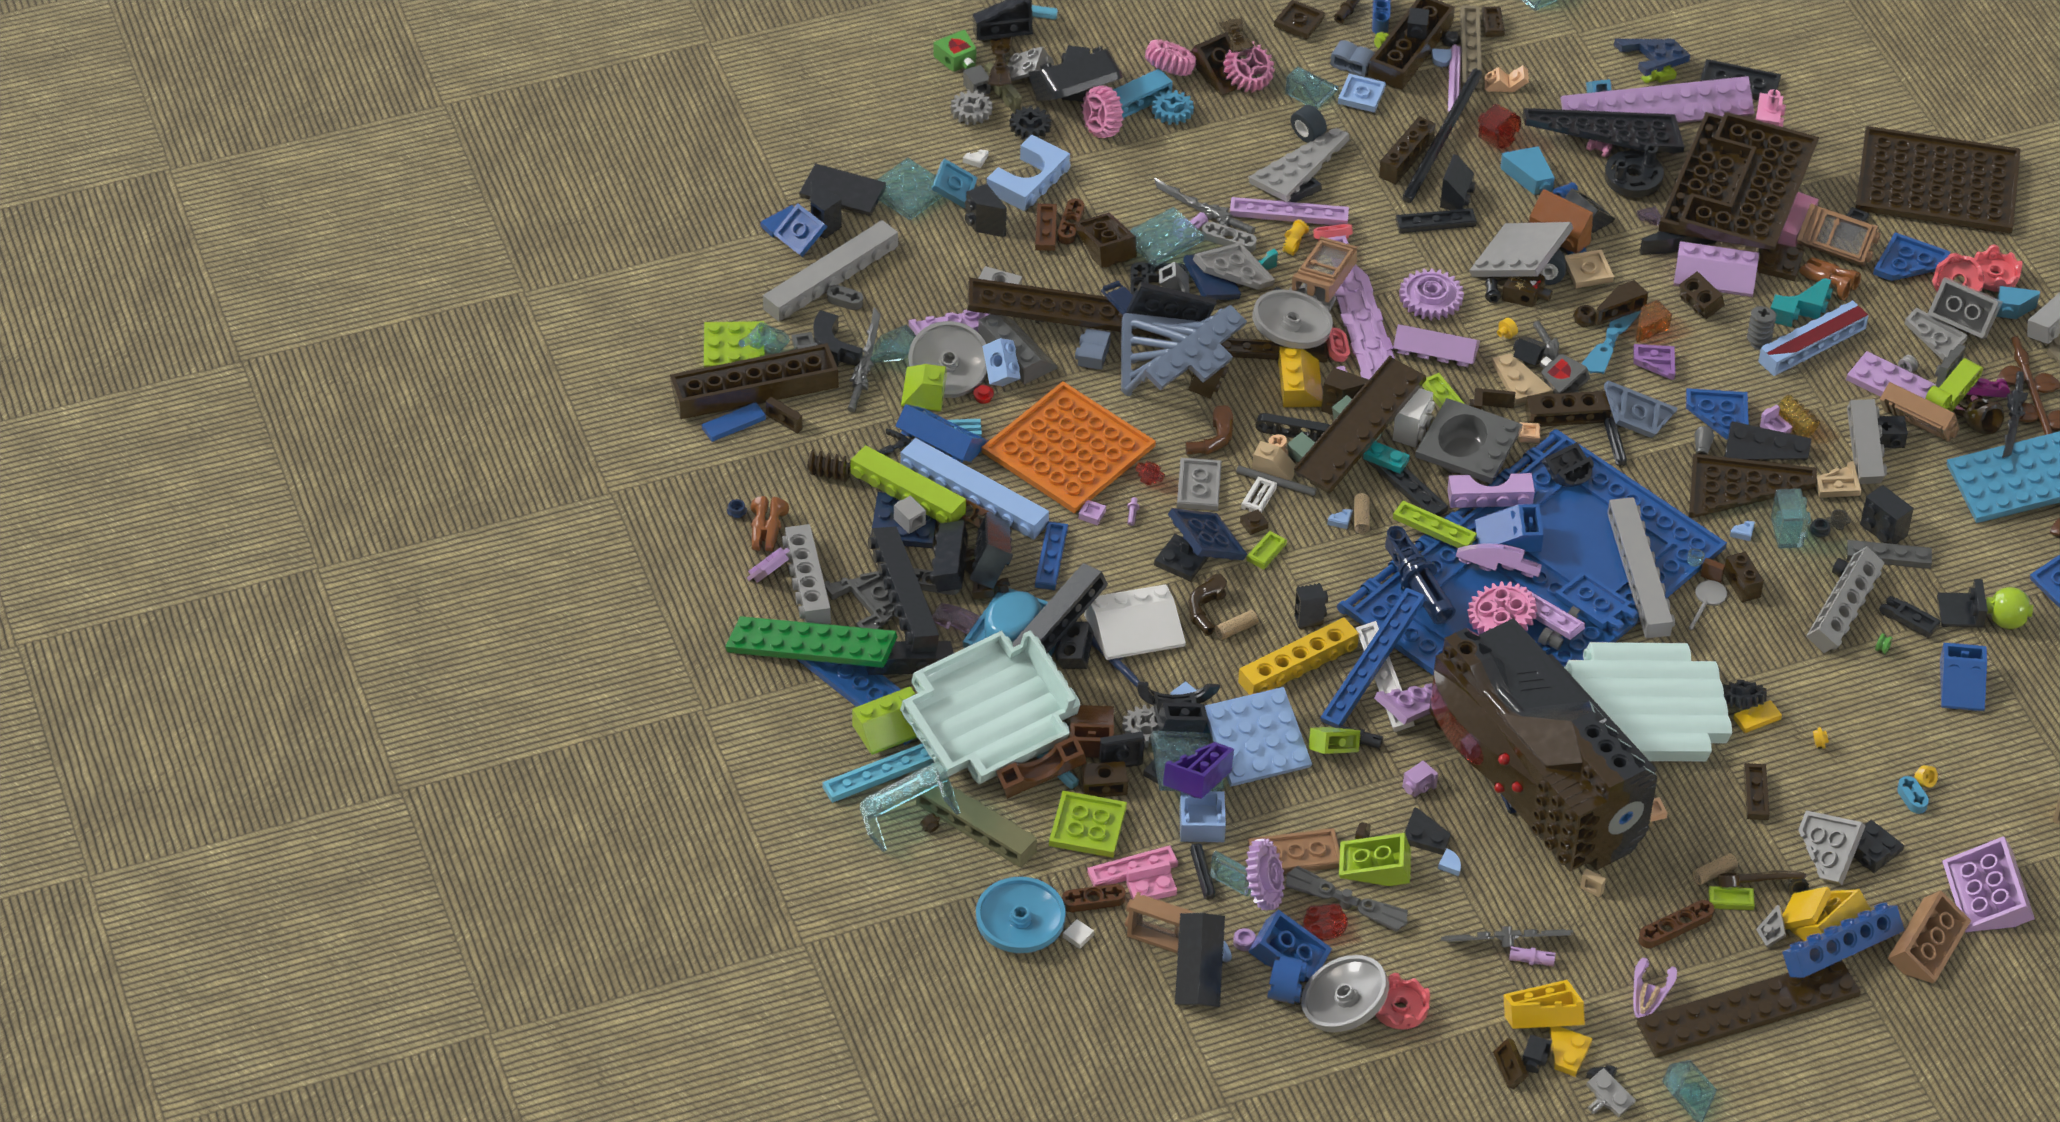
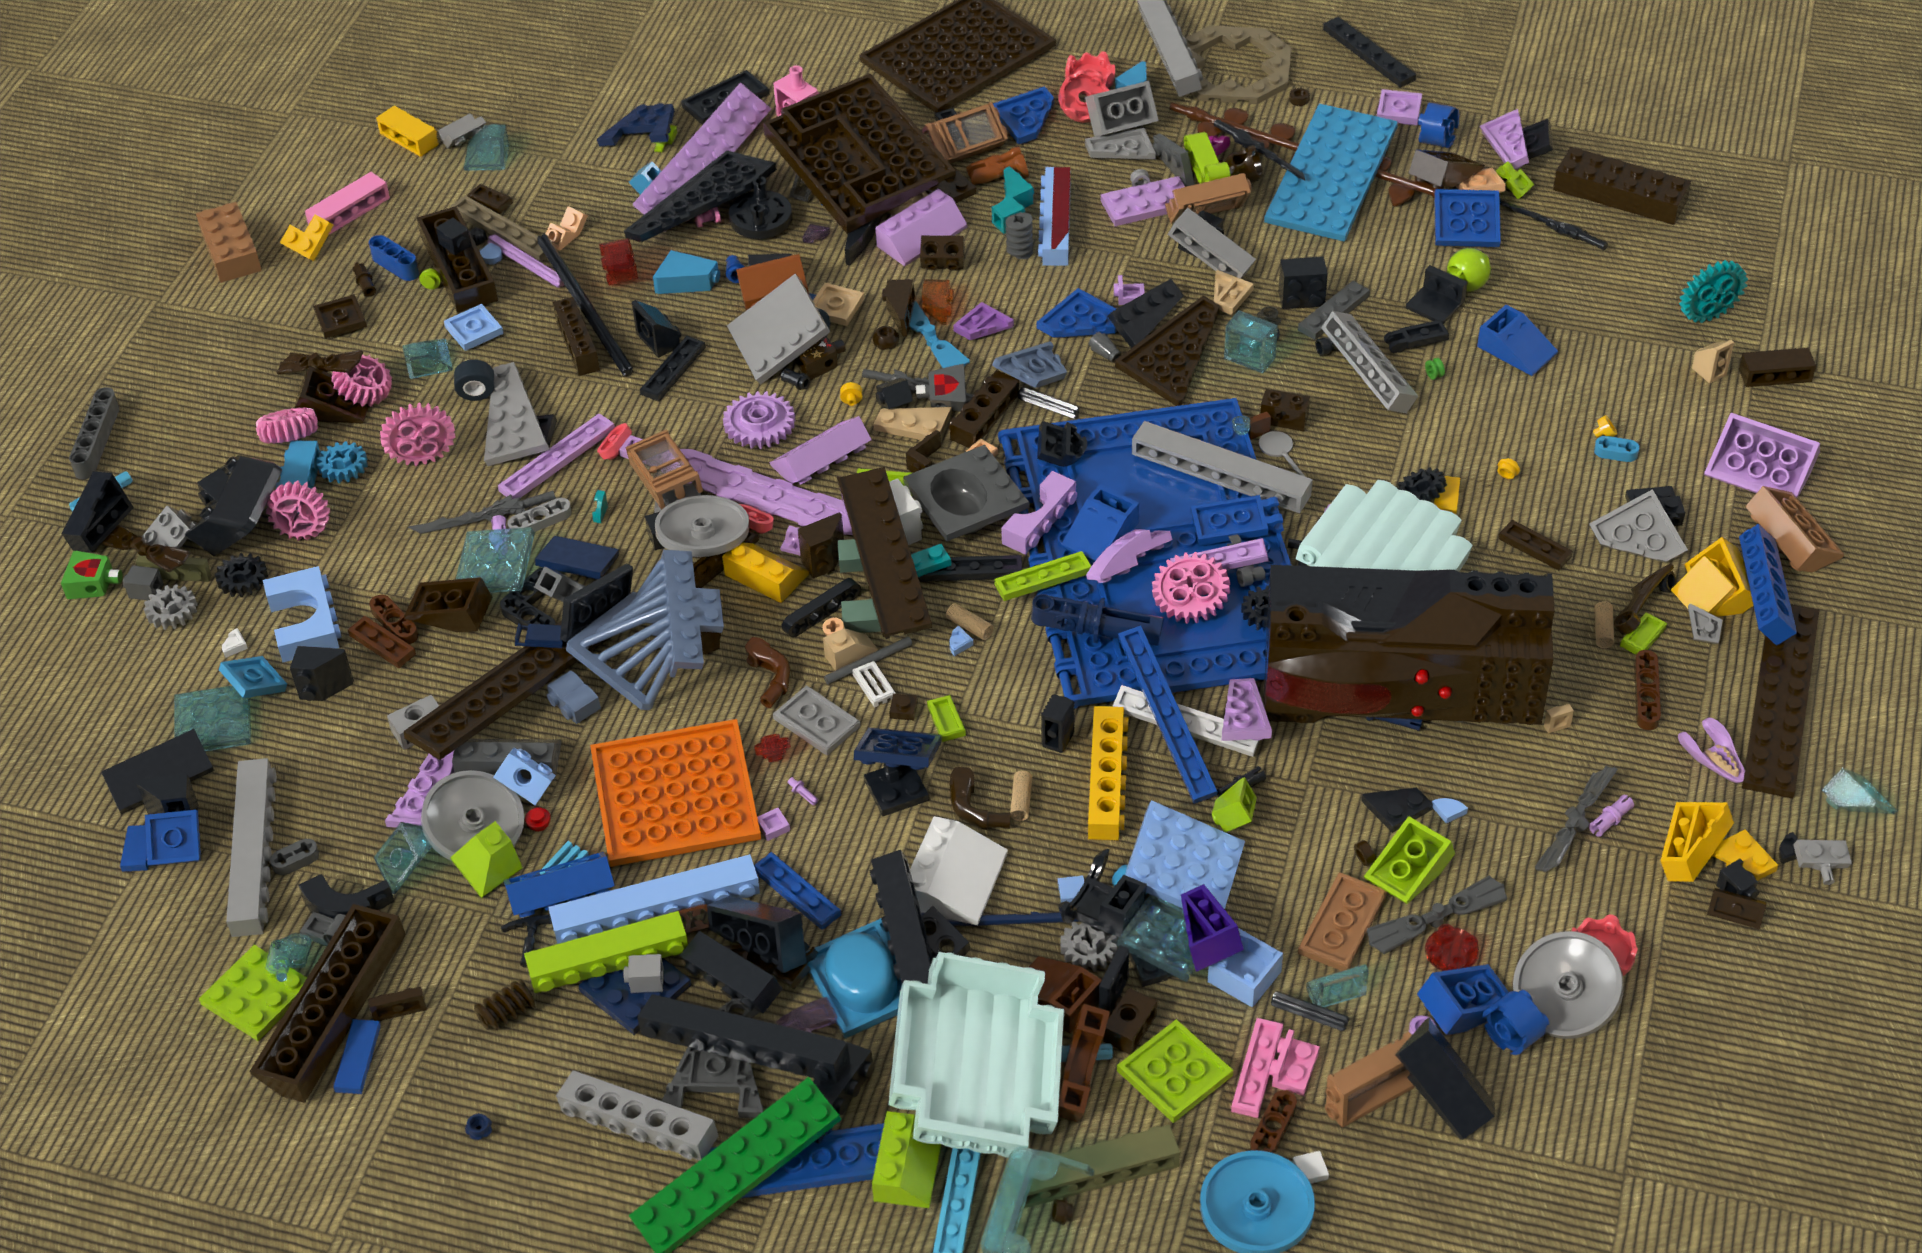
camera: 50 degrees left, 0 degrees up
(767, 530) = (530, 1119): dark orange piece -> none
(768, 565) = (589, 1143): lavender piece -> none
(859, 376) = (404, 892): dark grey sword -> none
(1223, 125) = (417, 434): none -> bright pink gear
(1234, 264) = (584, 531): light grey plate -> none
(1265, 874) = (1377, 957): lavender gear -> none
(1294, 237) = (591, 471): yellow connector -> none
(1351, 58) = (427, 309): sand blue brick -> none
(1420, 779) = (1333, 770): lavender brick -> none
(1743, 531) = (1226, 382): light blue tile -> none
(1797, 416) = (1135, 274): clear yellow piece -> none

